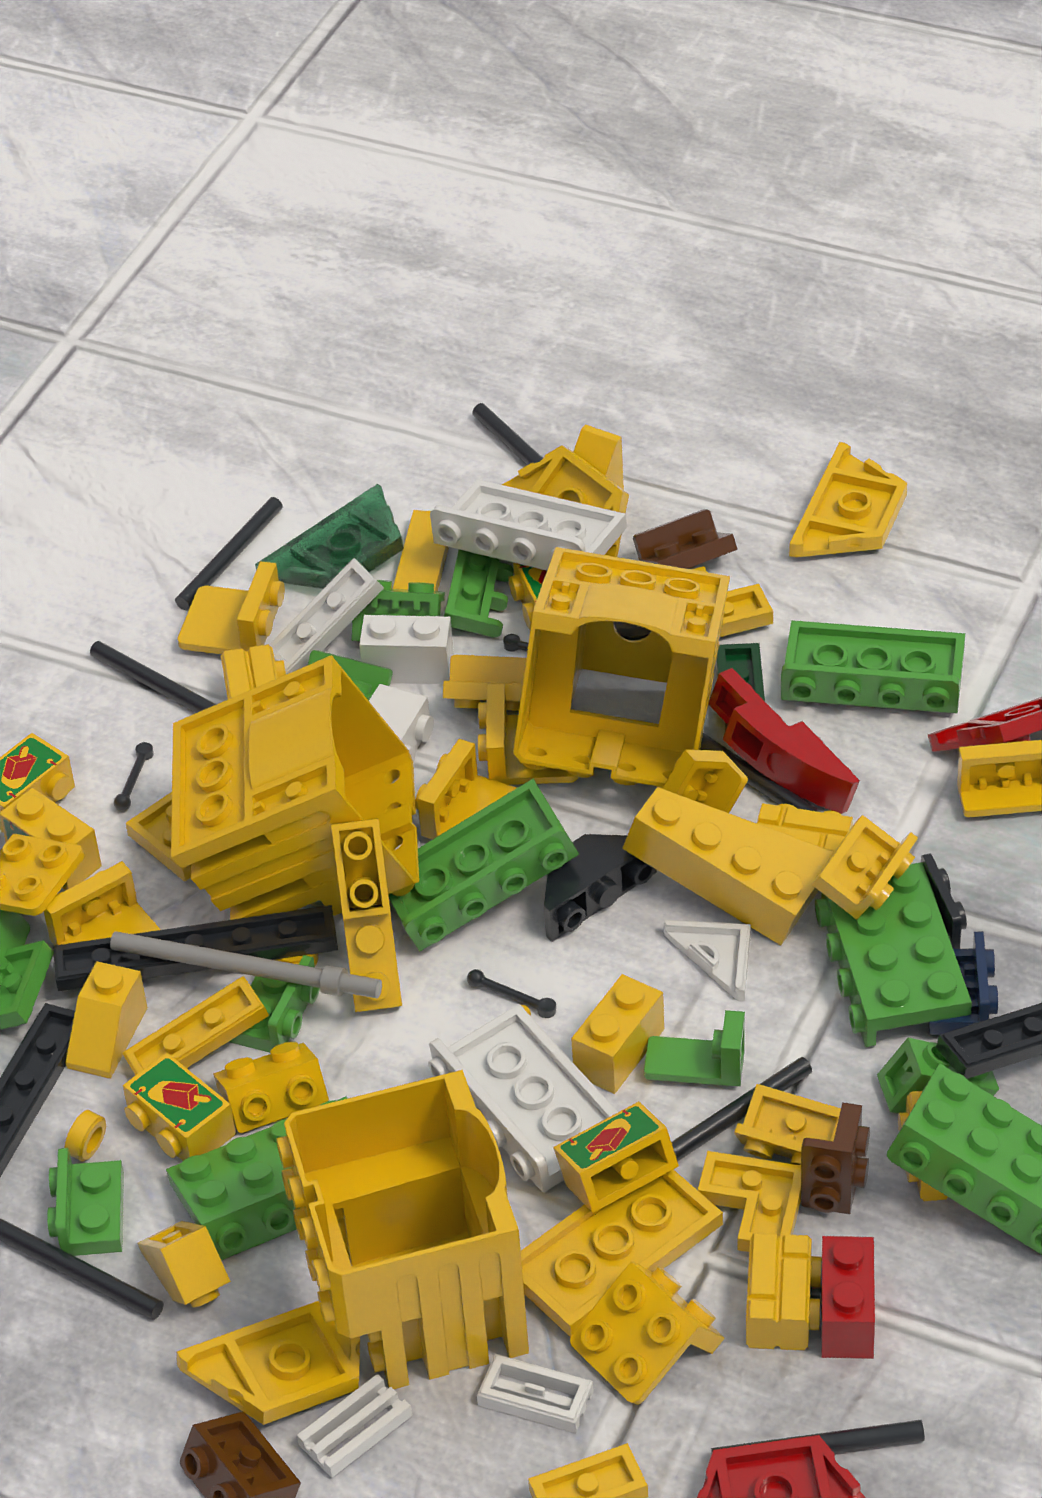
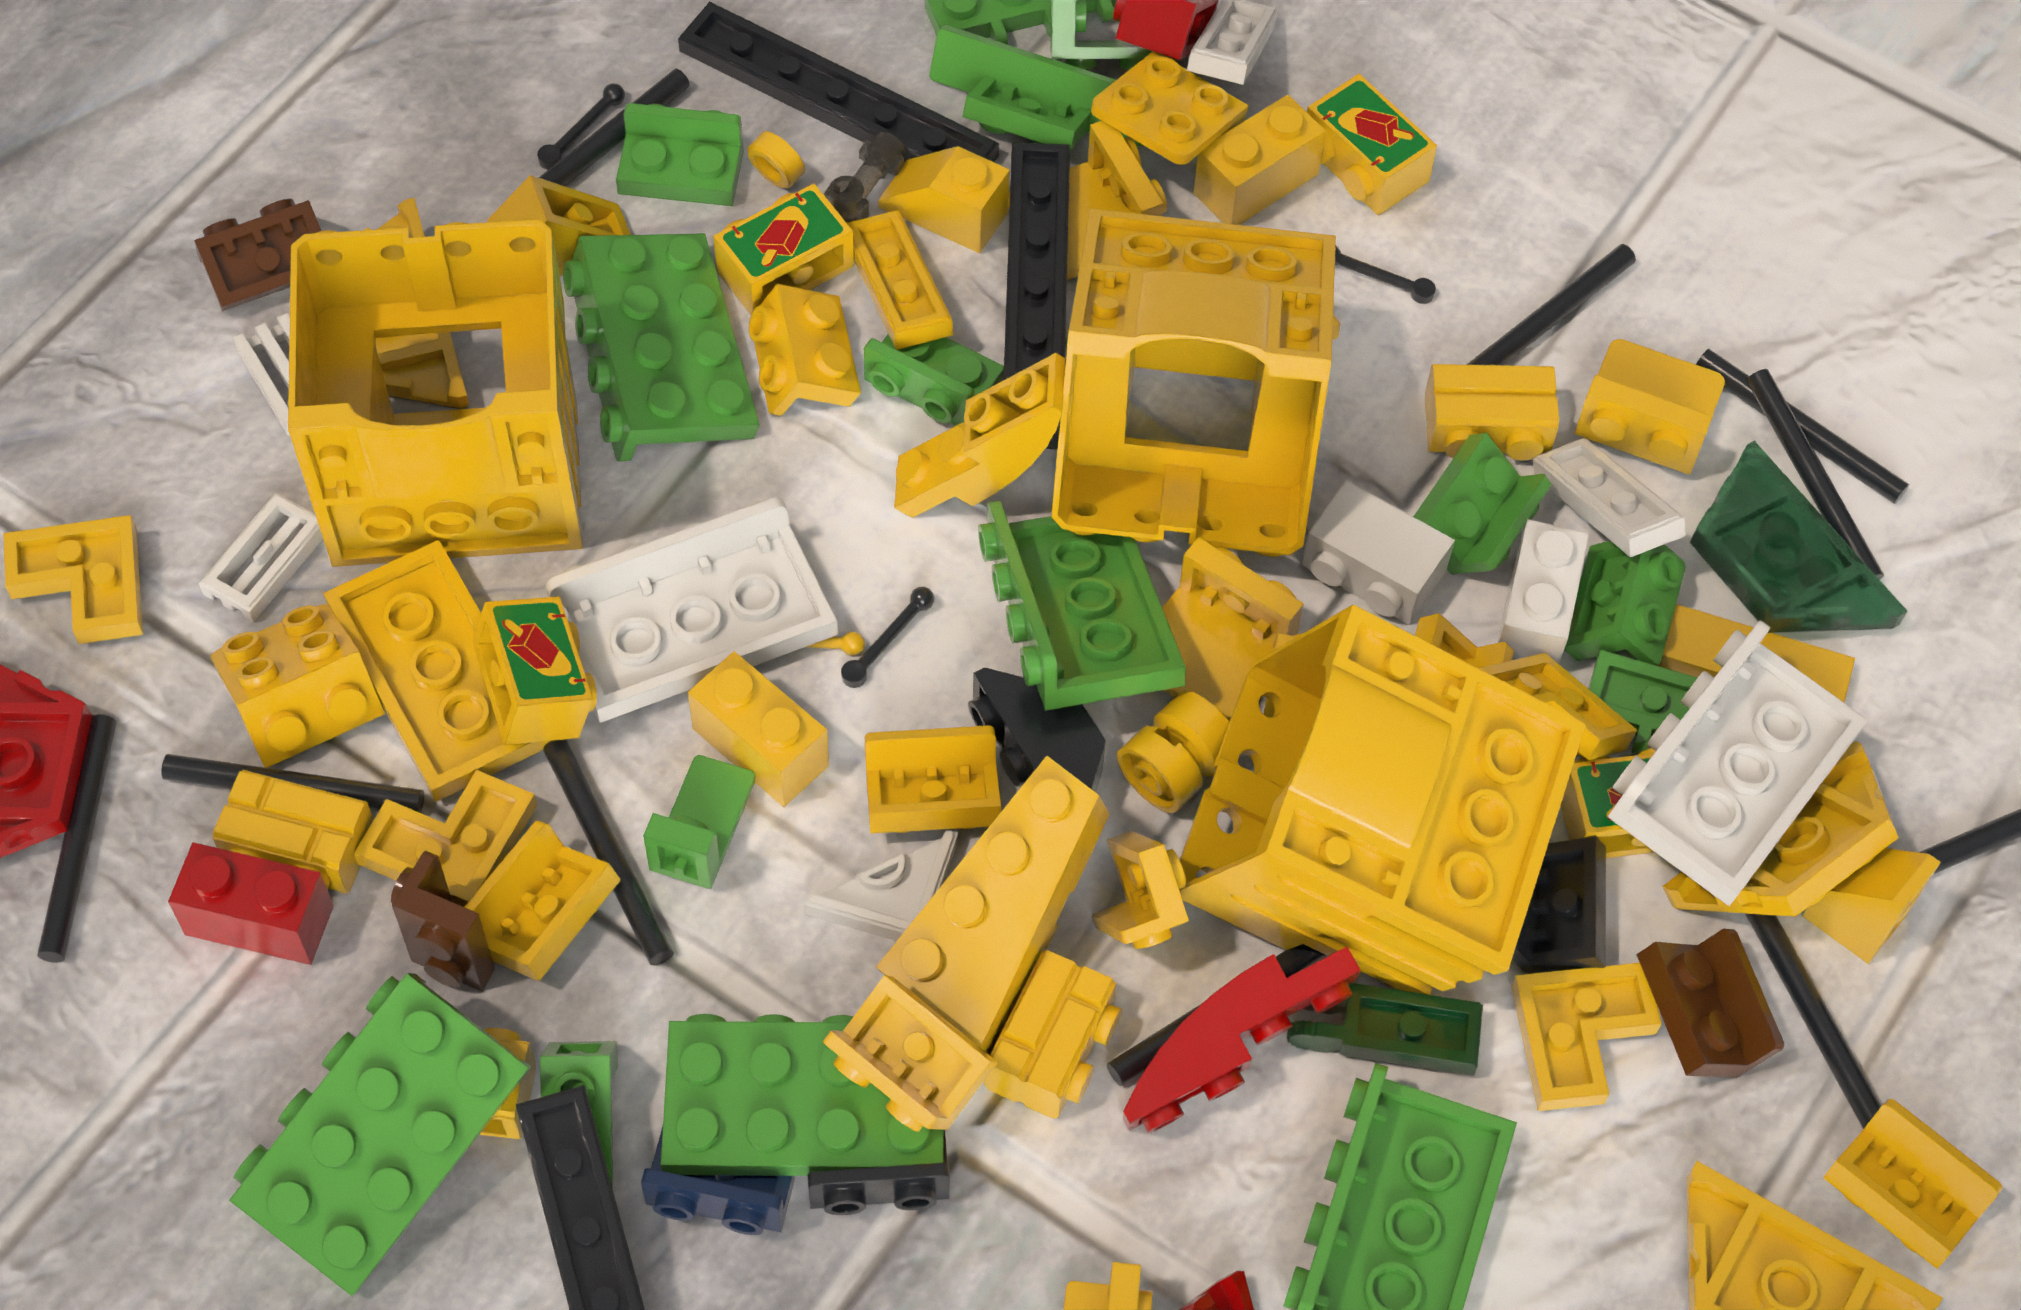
camera: 95 degrees right, 15 degrees up
(71, 1072) = (880, 157): none -> clear smoke bar
(91, 1302) = (550, 154): none -> black hinge
(260, 543) = (1809, 465): none -> black bar
(330, 980) = (909, 399): light grey bar -> none
(500, 625) = (1549, 682): none -> yellow plate
(578, 806) = (1175, 754): none -> yellow wheel
(634, 934) = (931, 779): none -> yellow bracket
(680, 508) = (1816, 1016): none -> black bar
(733, 1319) = (225, 773): none -> black bar
(771, 460) = (1913, 1182): none -> yellow bracket

